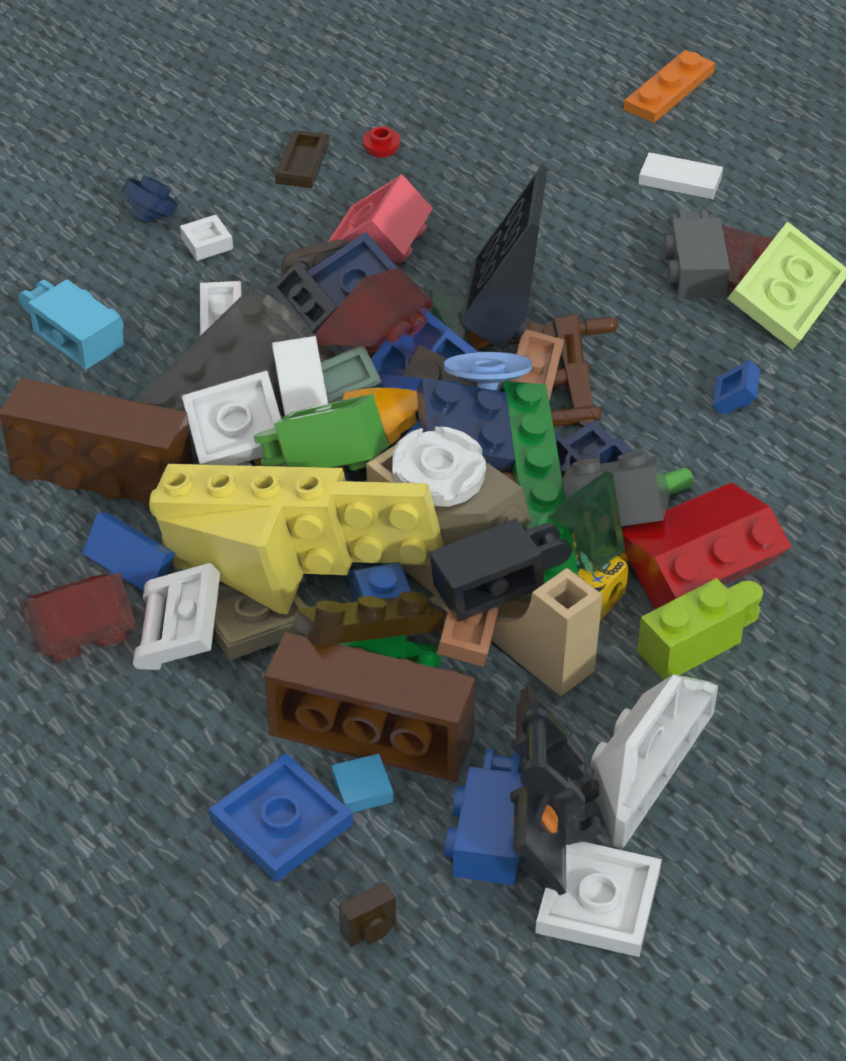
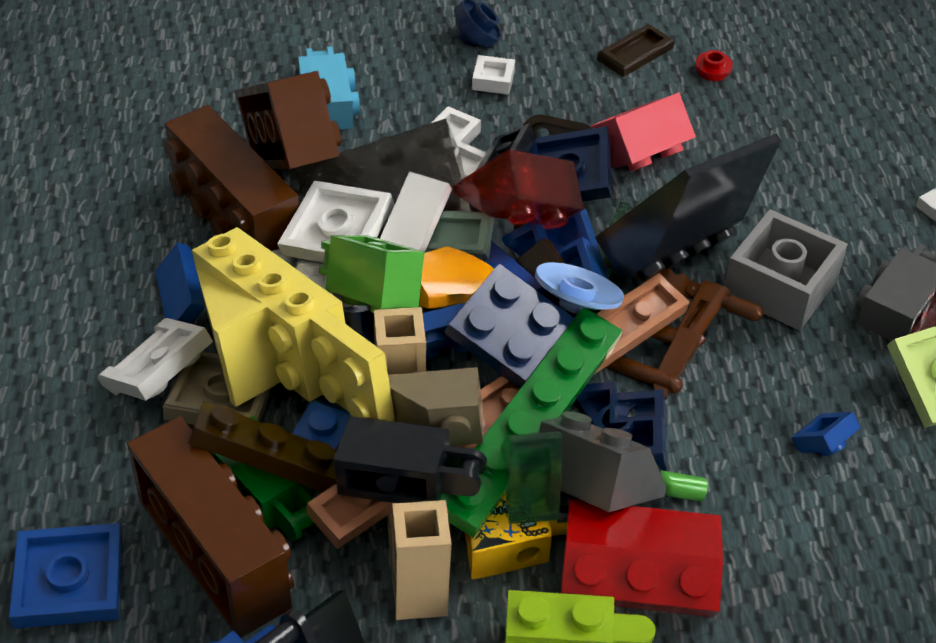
camera: 35 degrees right, 0 degrees up
(78, 615) = (91, 315): clear red slope -> none
(114, 350) = (289, 120): none -> reddish brown brick
(362, 783) = (158, 589): dark azure tile -> none
(444, 460) = (426, 345): white tile -> none
(603, 277) = (785, 268): none -> light grey brick

